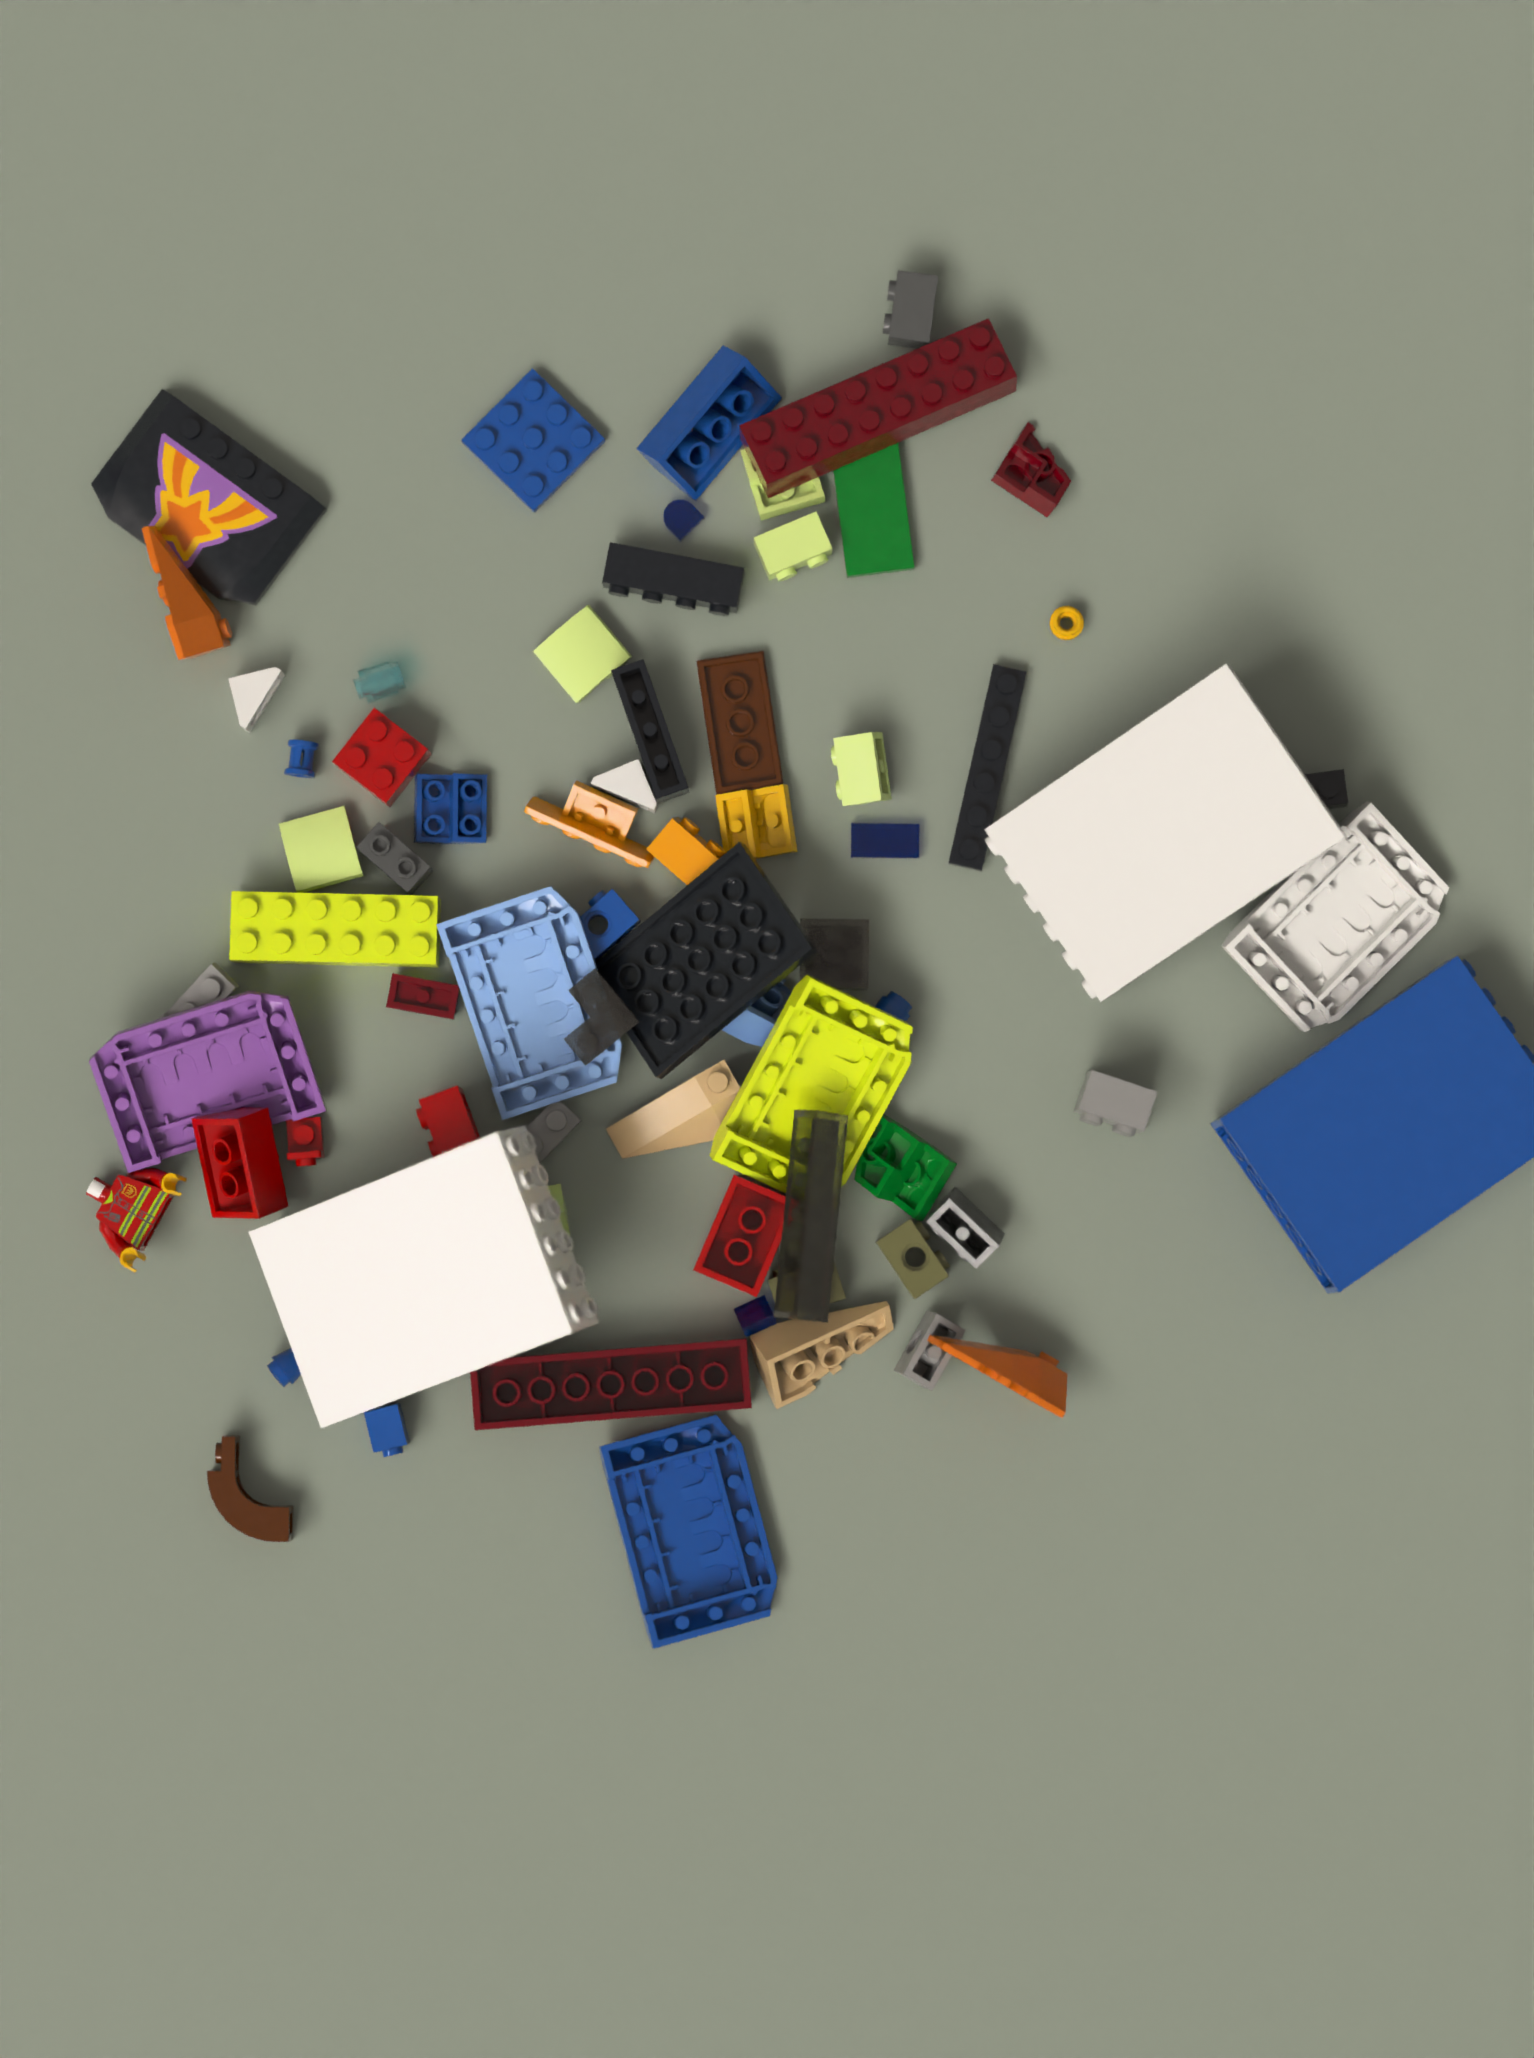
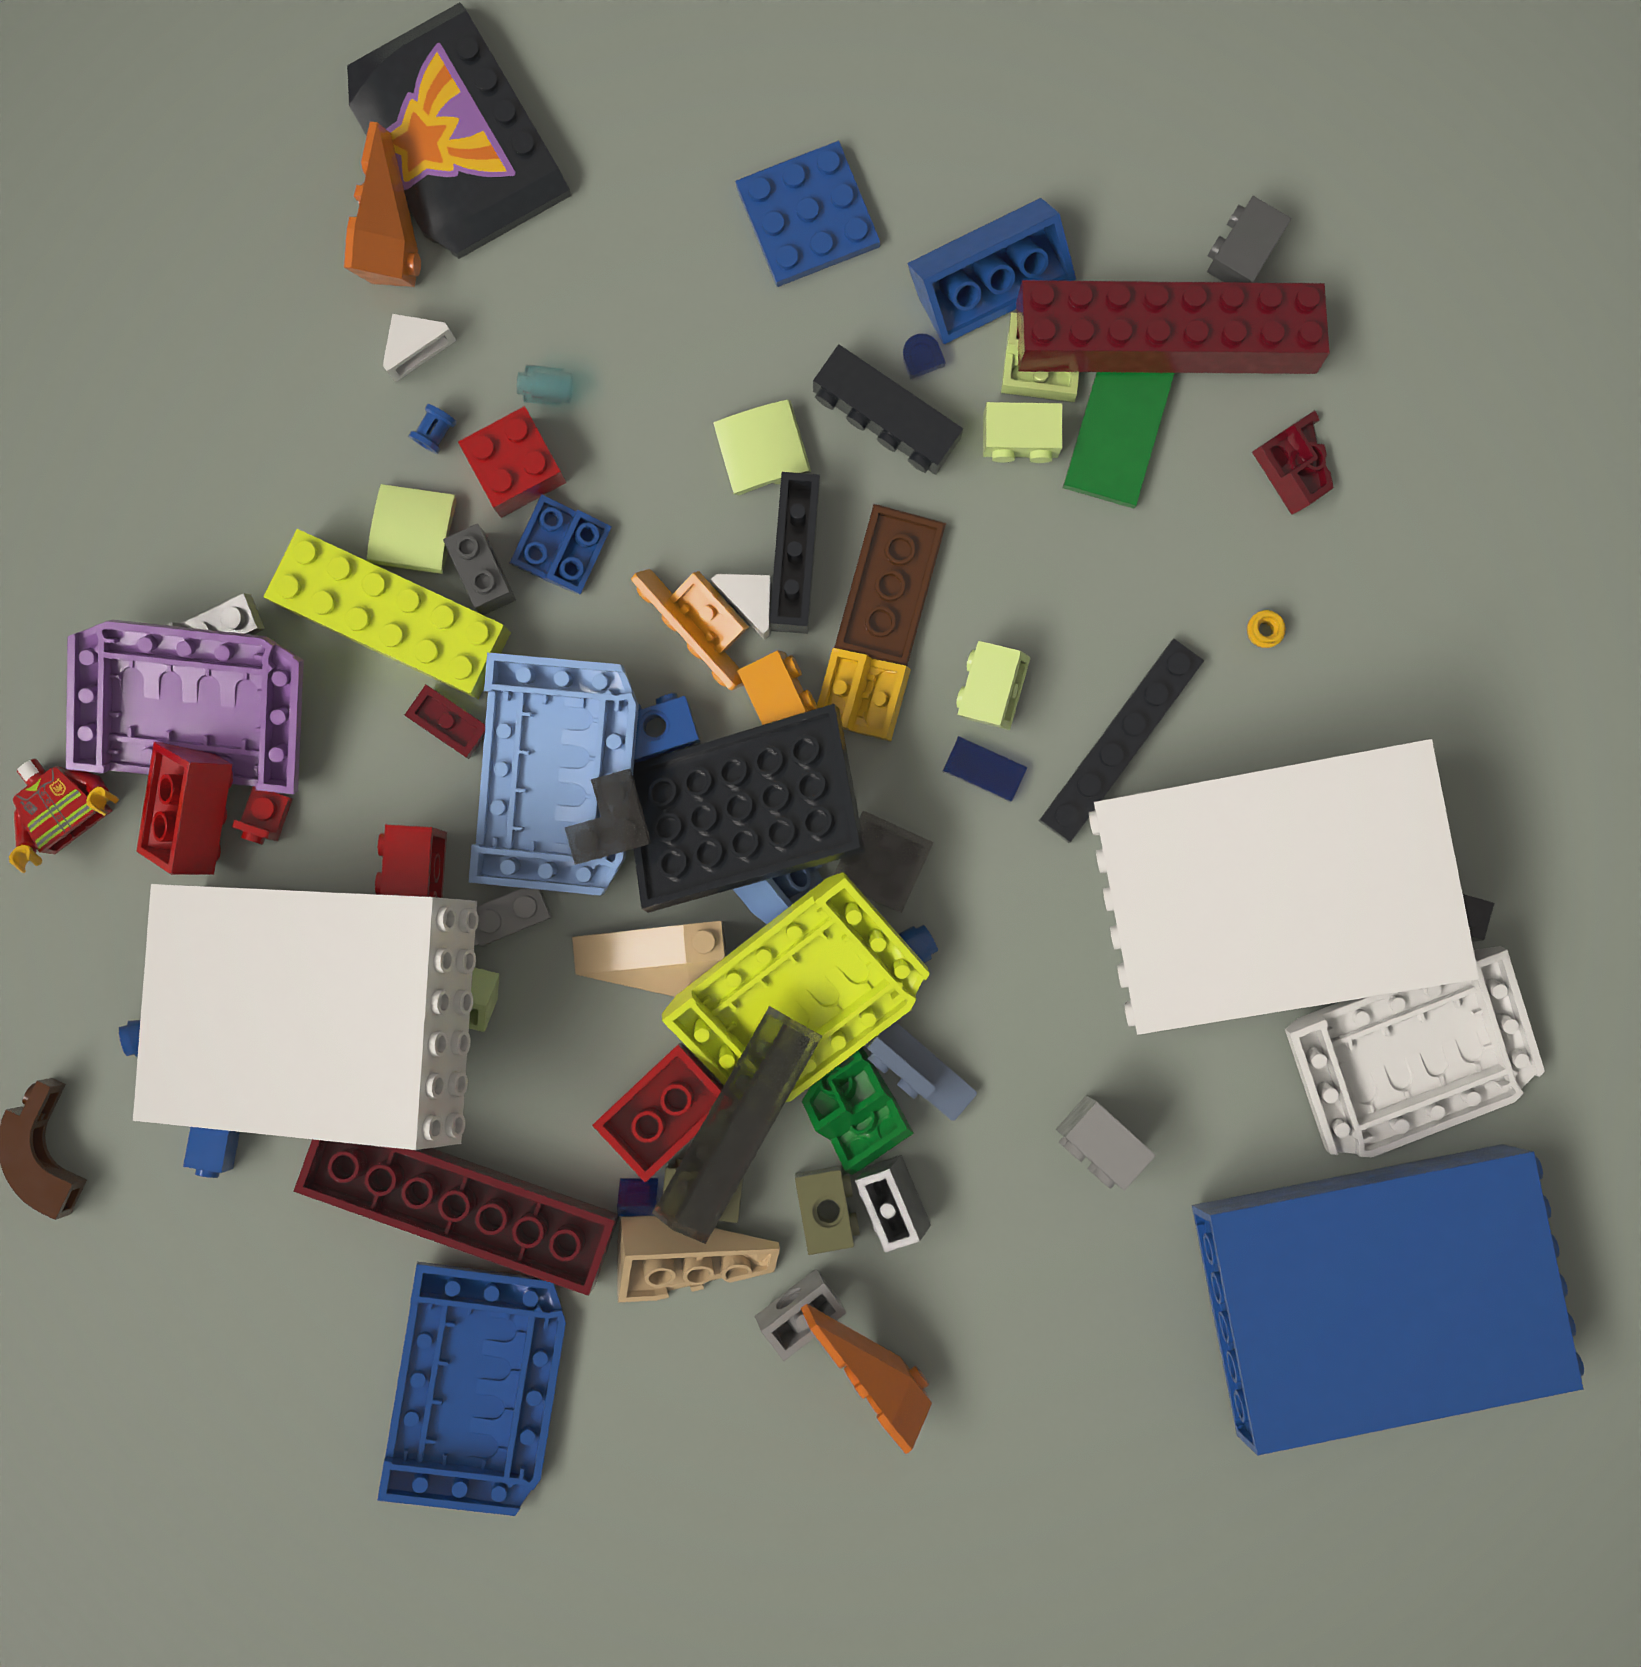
camera: 25 degrees right, 0 degrees up
(940, 1111) = (920, 1071): none -> sand blue bracket

